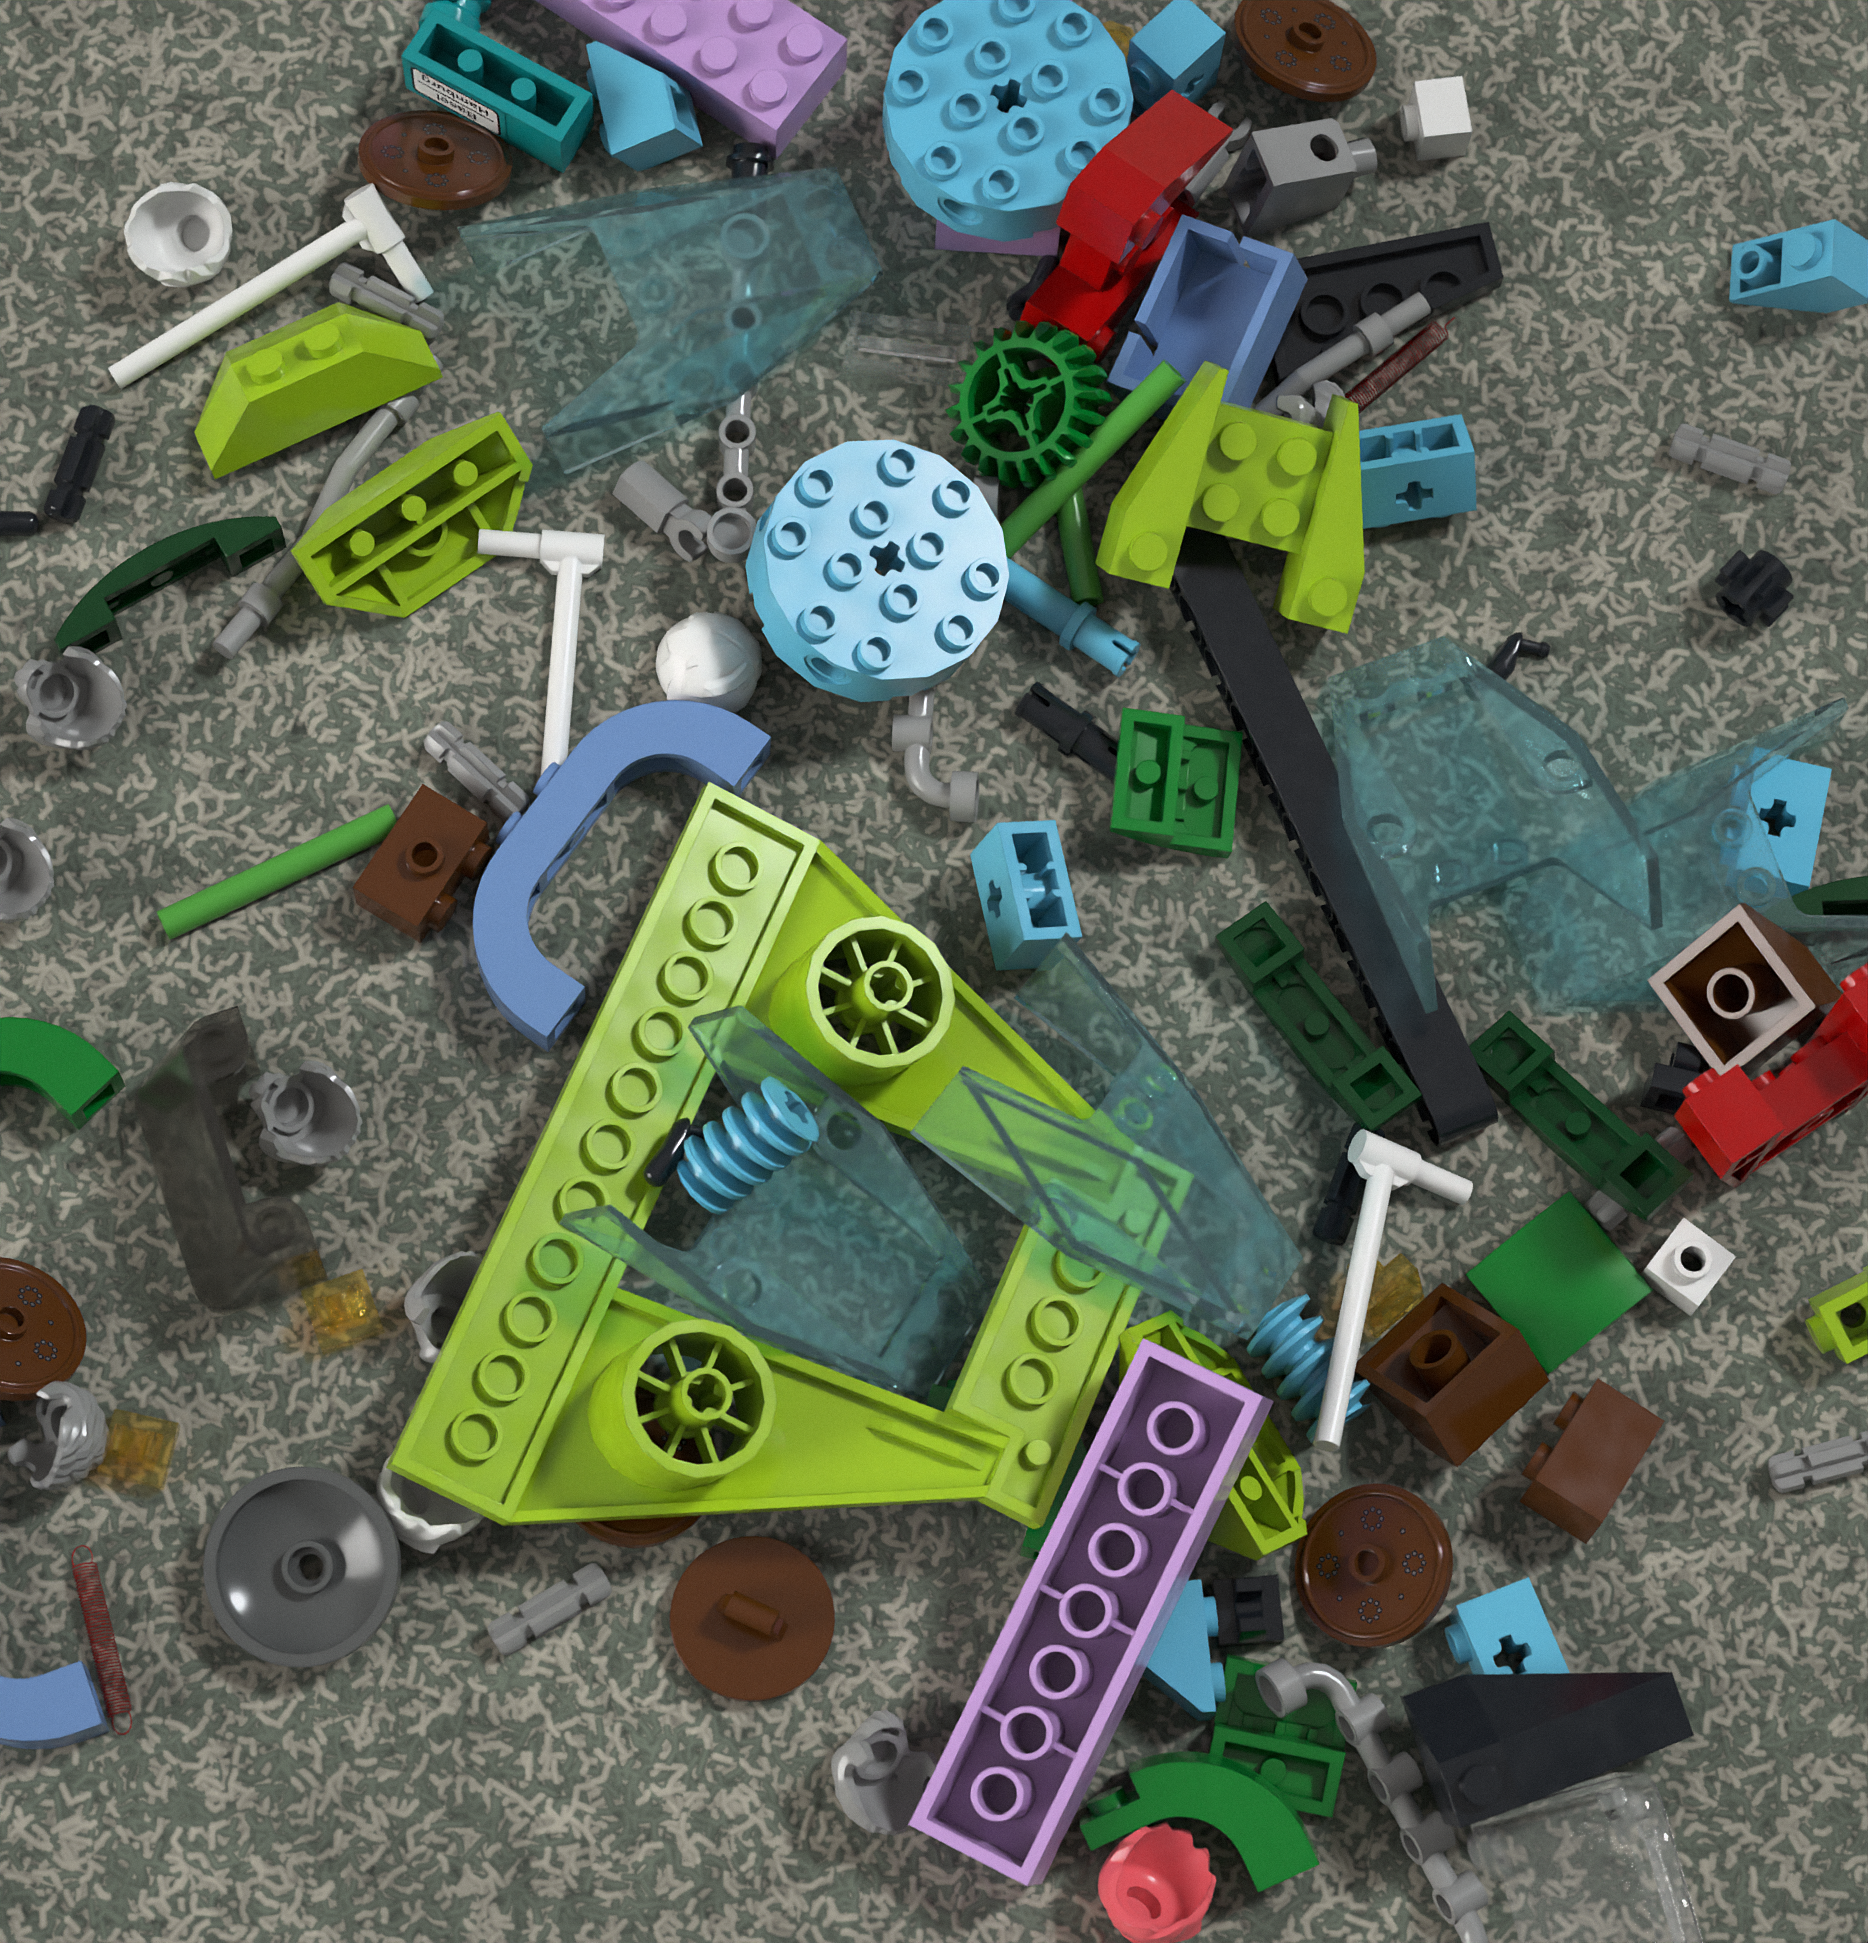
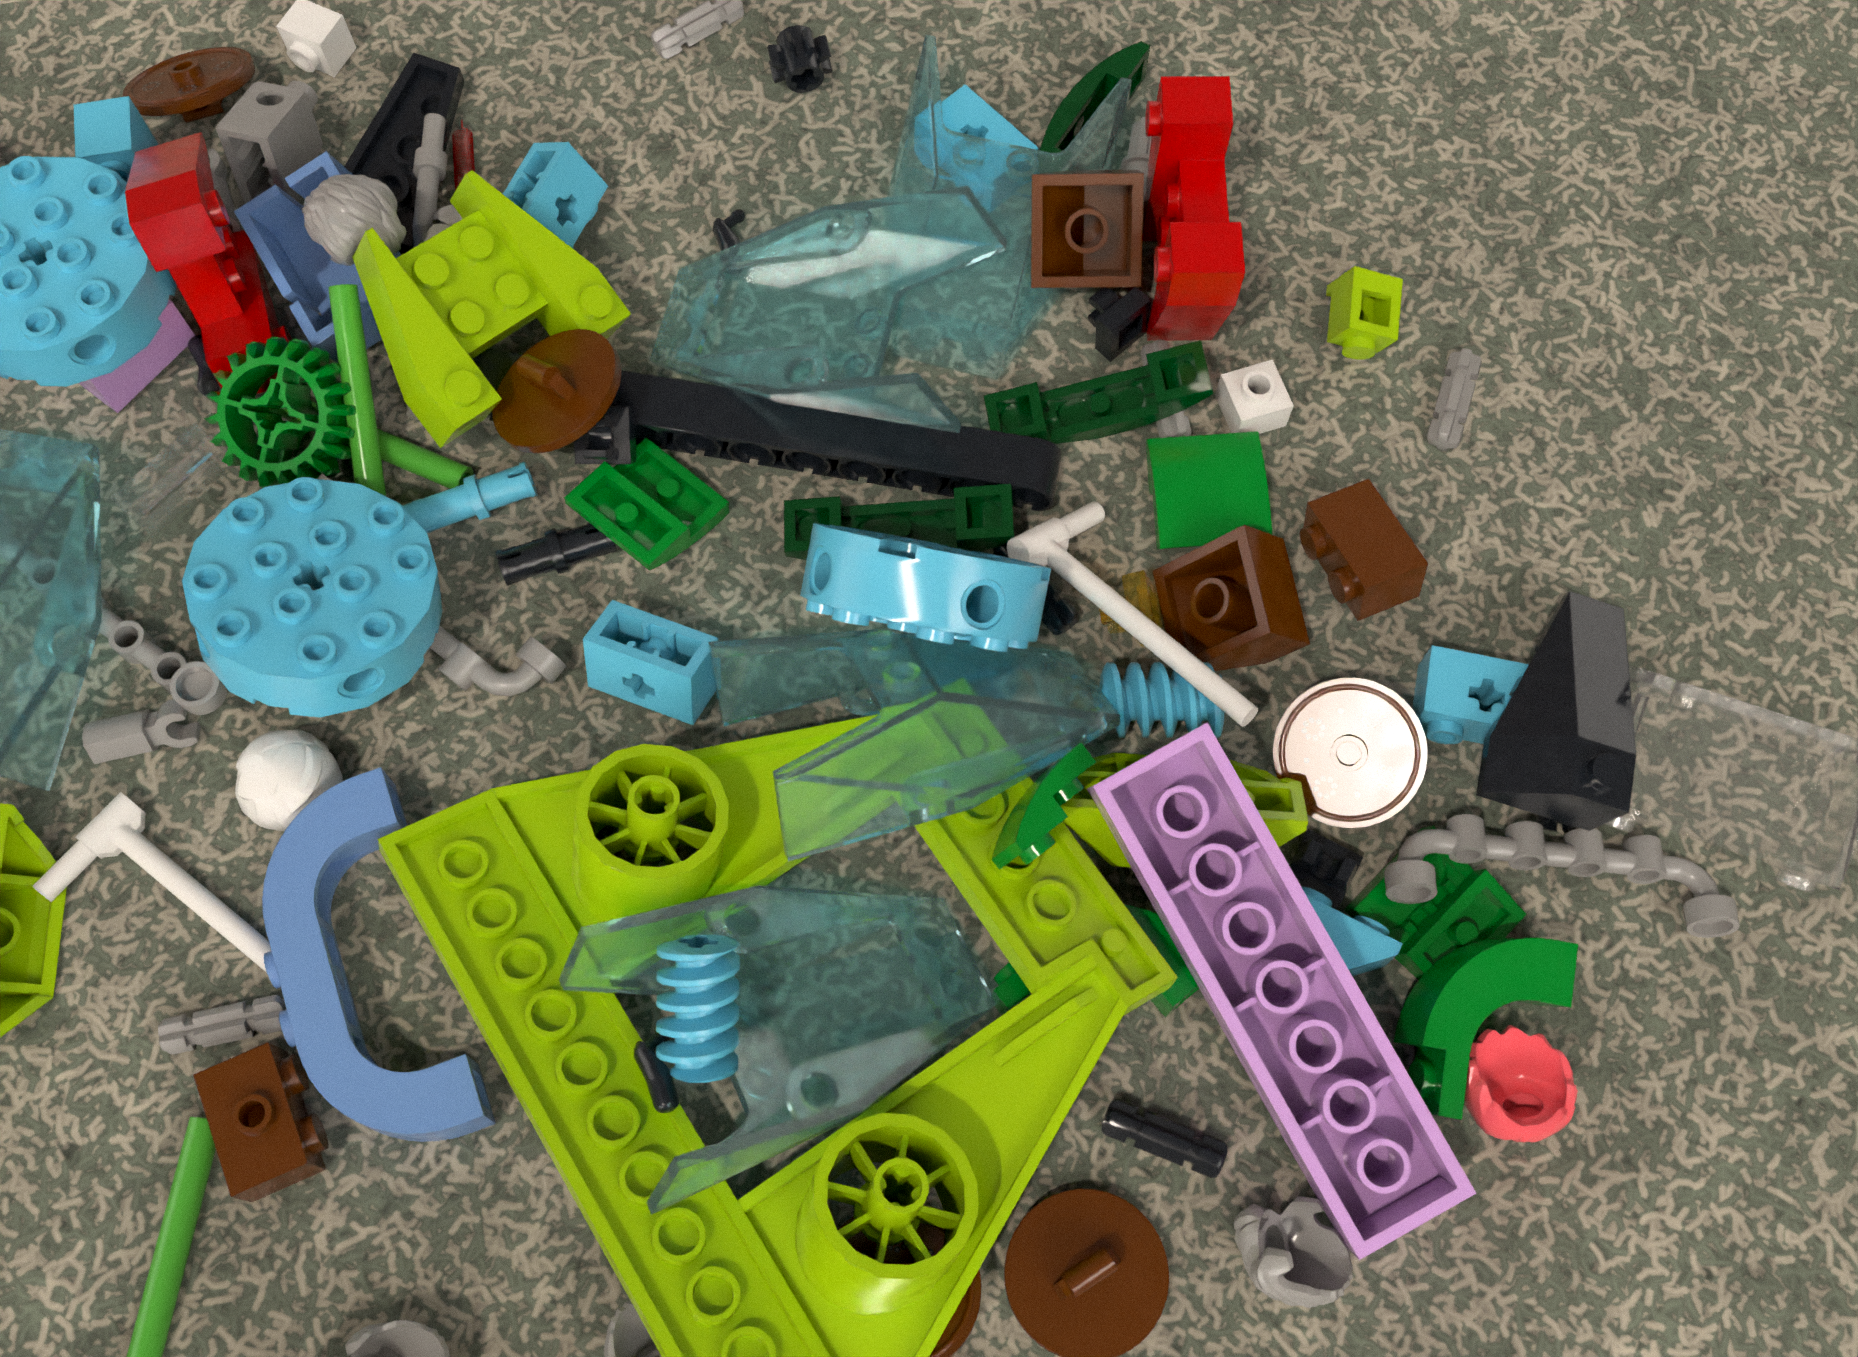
camera: 50 degrees left, 5 degrees down
(910, 1615) = (1164, 1138): none -> black axle
(1096, 1313) = (1040, 810): none -> green slope
(1211, 697) = (609, 439): none -> black tile
(1215, 628) = (557, 391): none -> reddish brown shield
(1244, 329) = (347, 207): none -> light grey hair
(1247, 1083) = (924, 588): none -> medium azure brick

